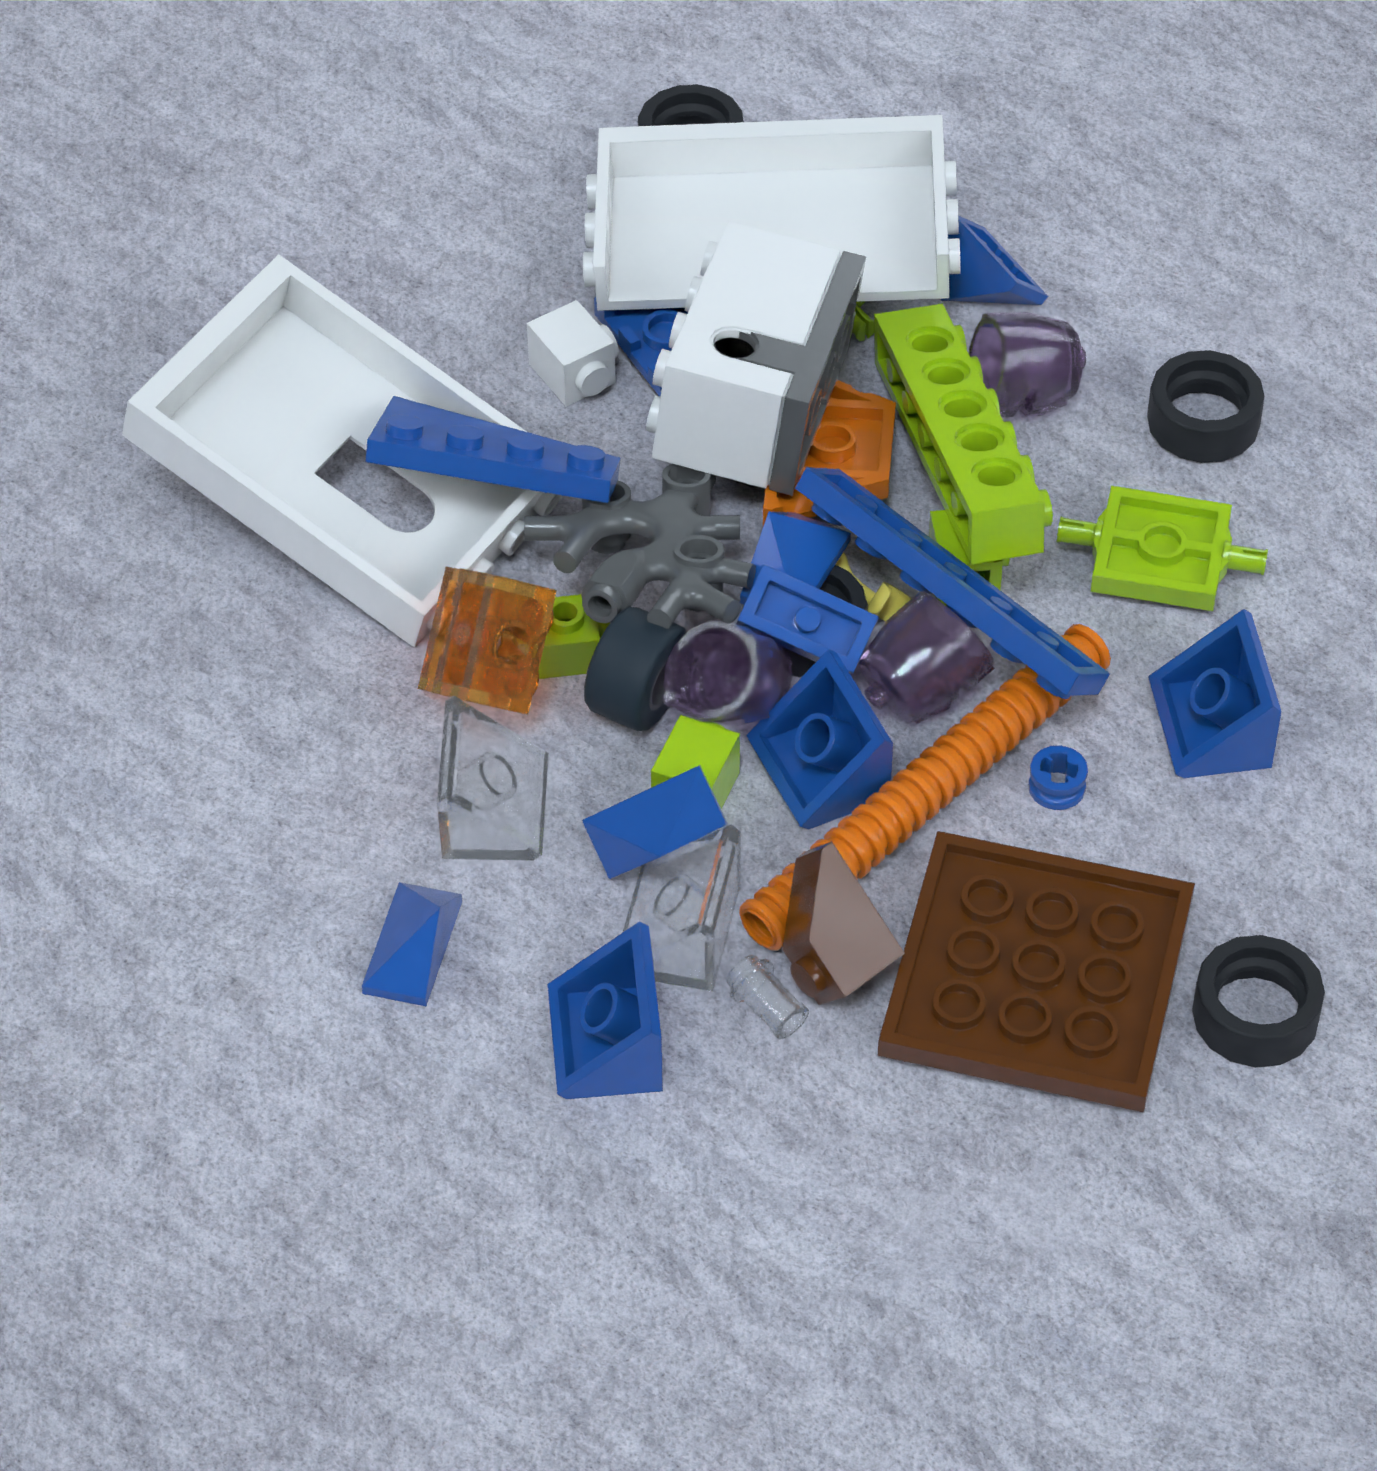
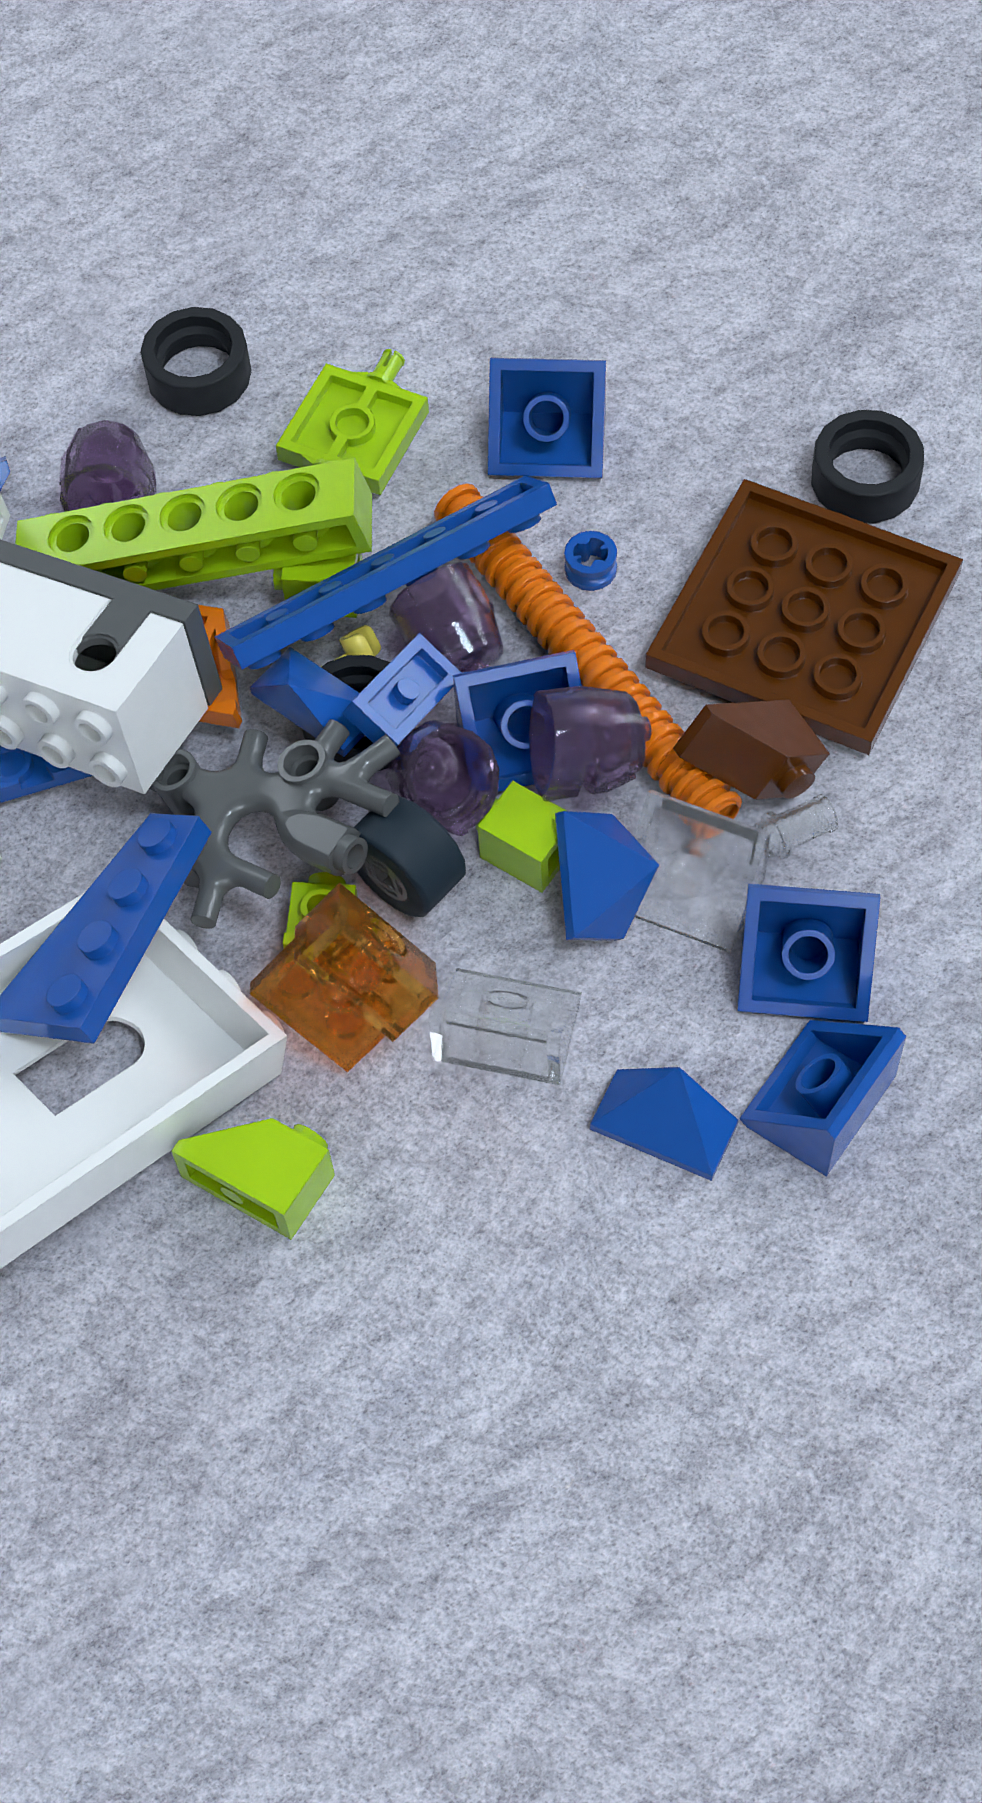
camera: 75 degrees left, 10 degrees up
(296, 641) = (260, 1170): none -> lime slope
(458, 1062) = (825, 1089): none -> blue slope
(792, 775) = (585, 740): none -> clear purple helmet

